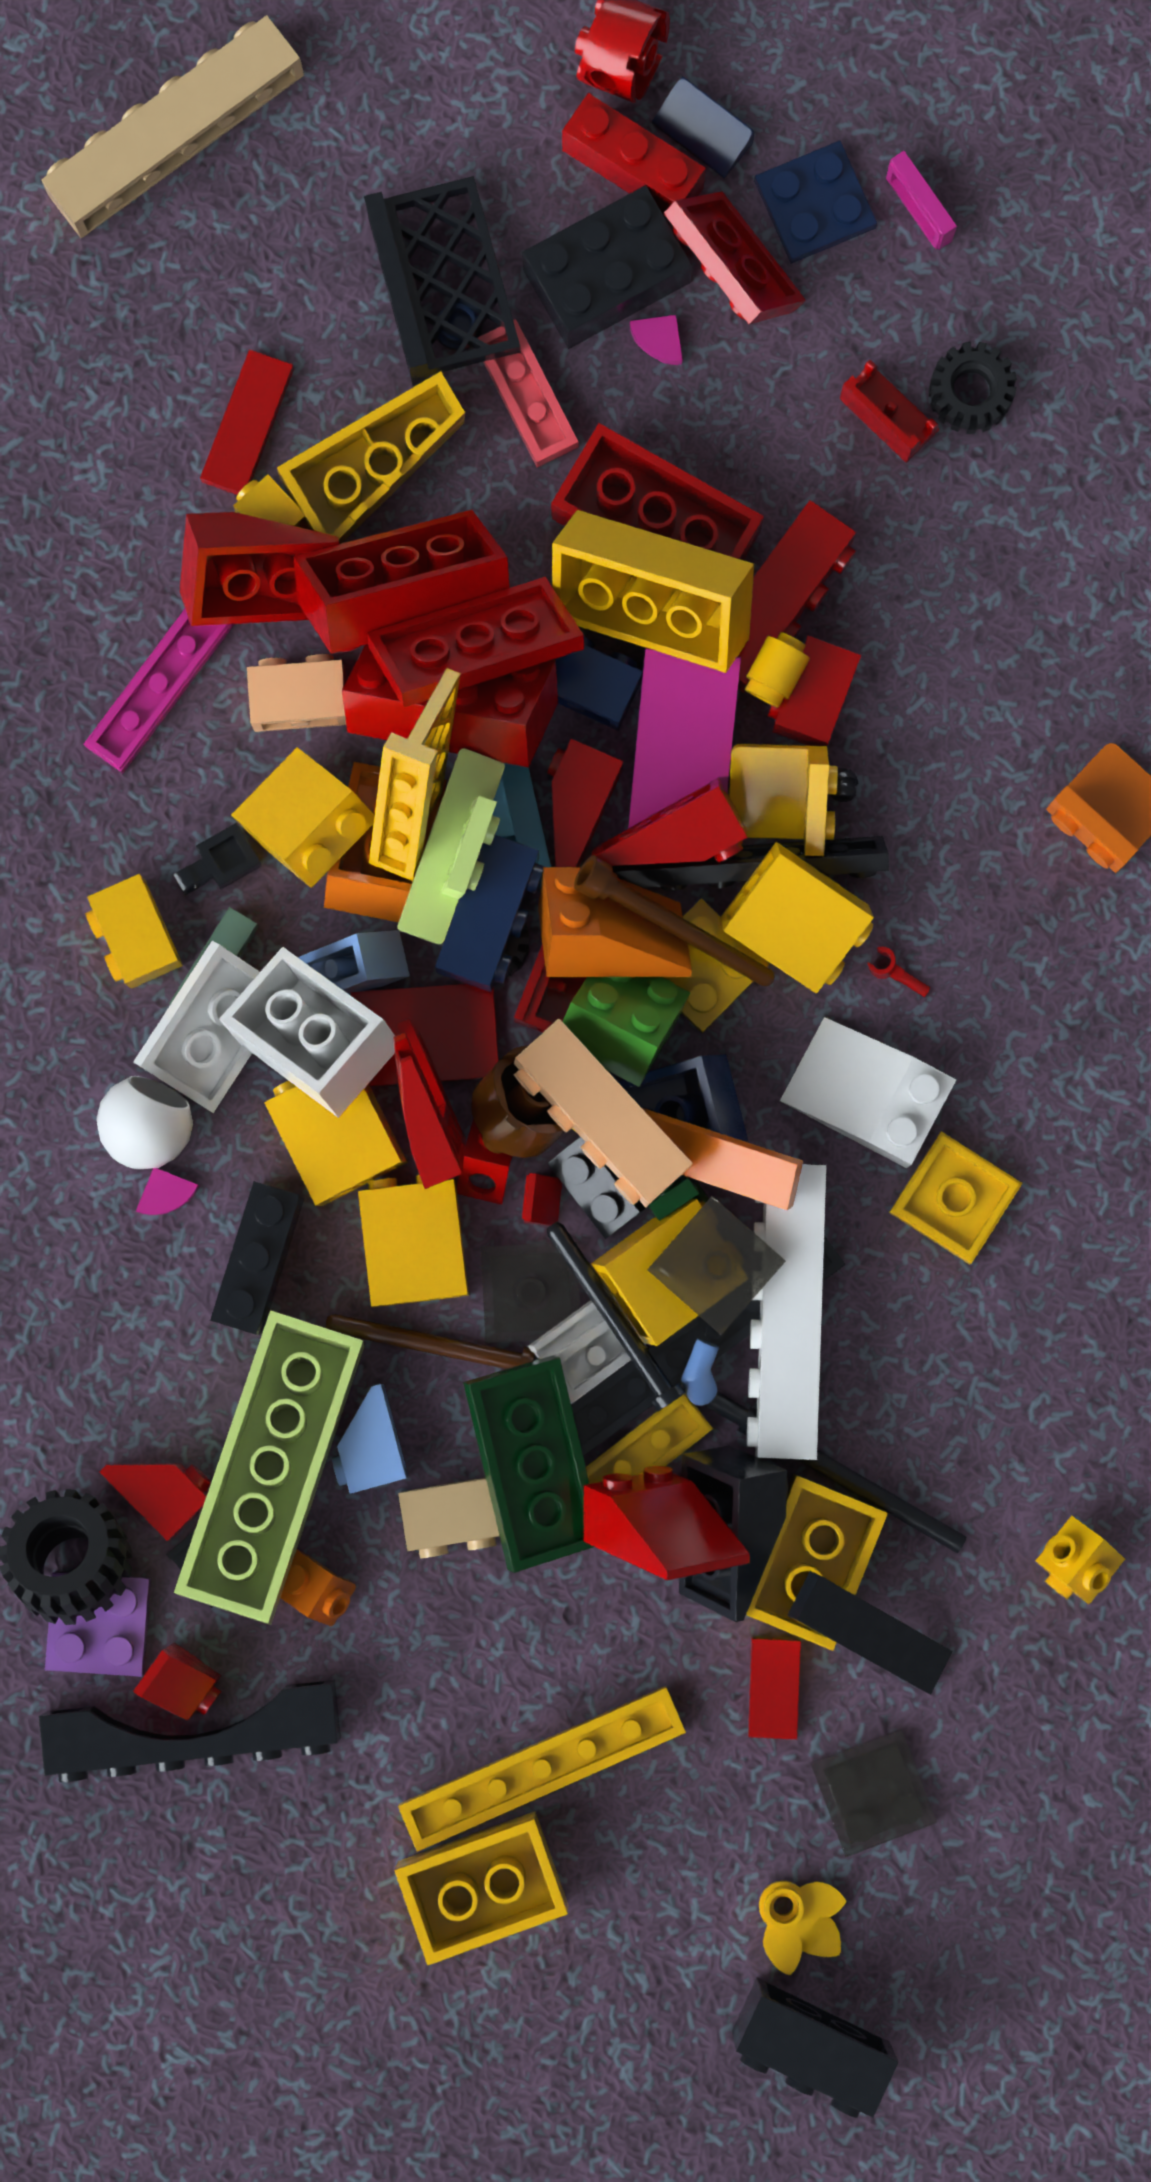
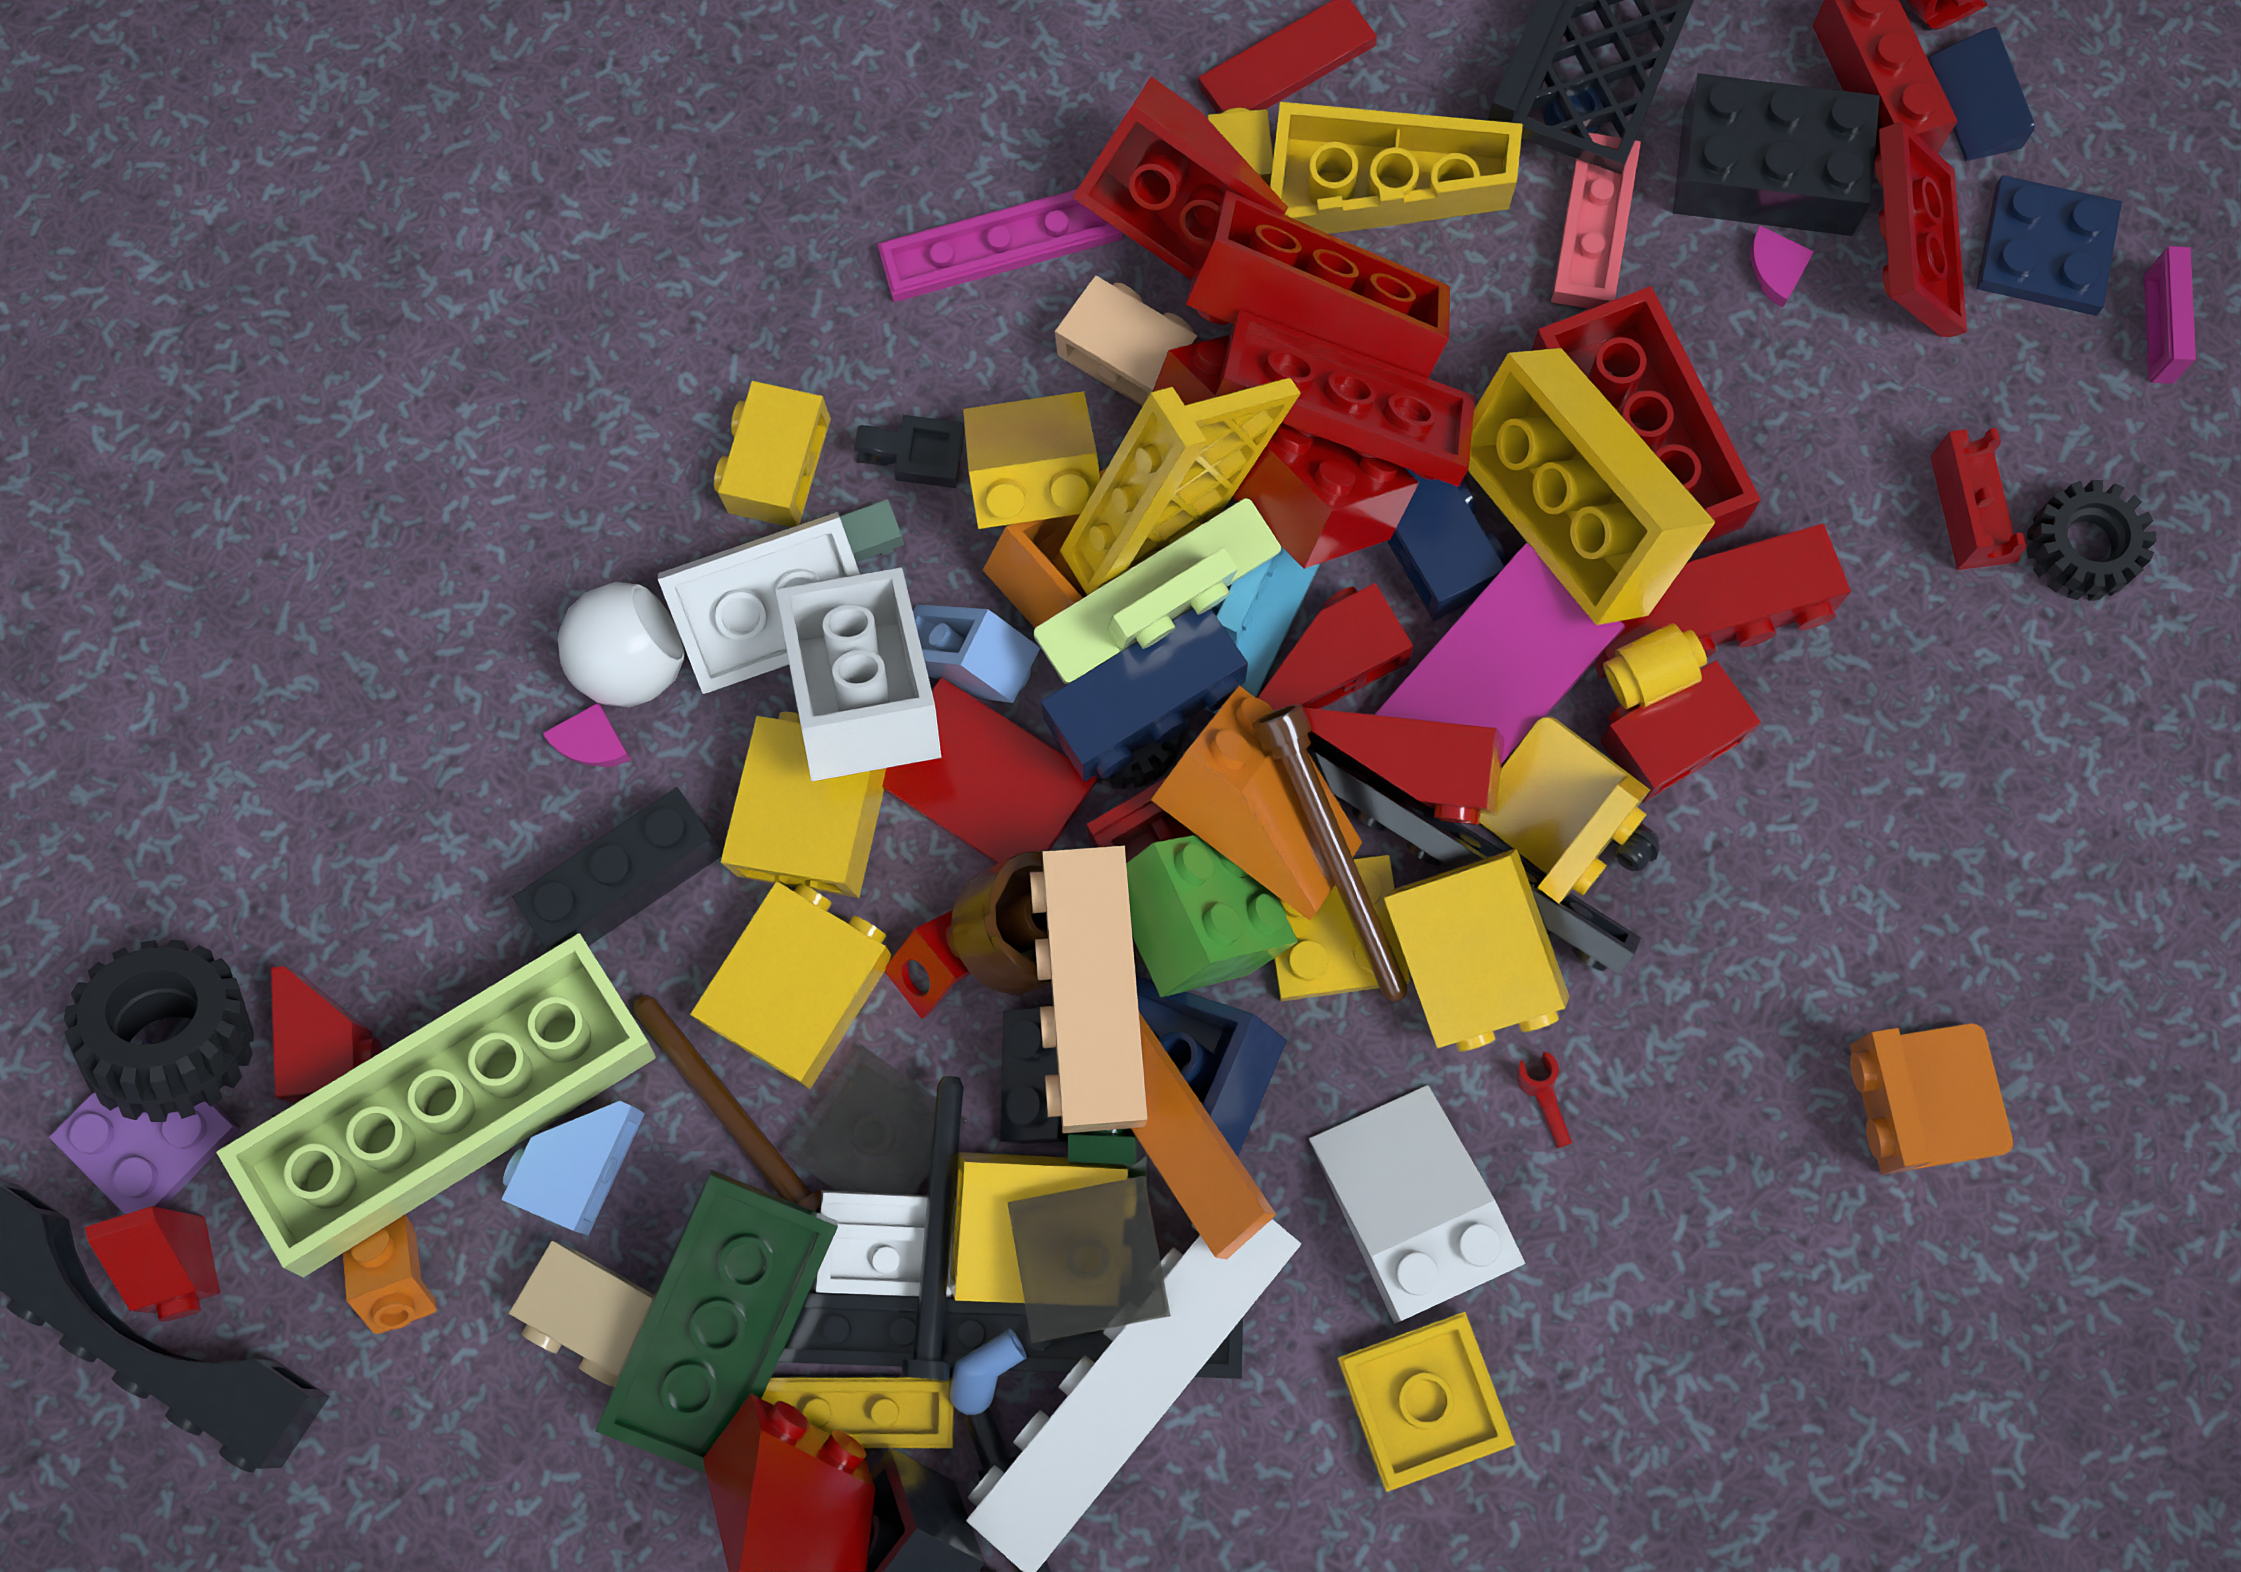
camera: 40 degrees right, 10 degrees down
(428, 1114) = (906, 833): red wedge -> none
(541, 1199) = (964, 1043): red slope -> none

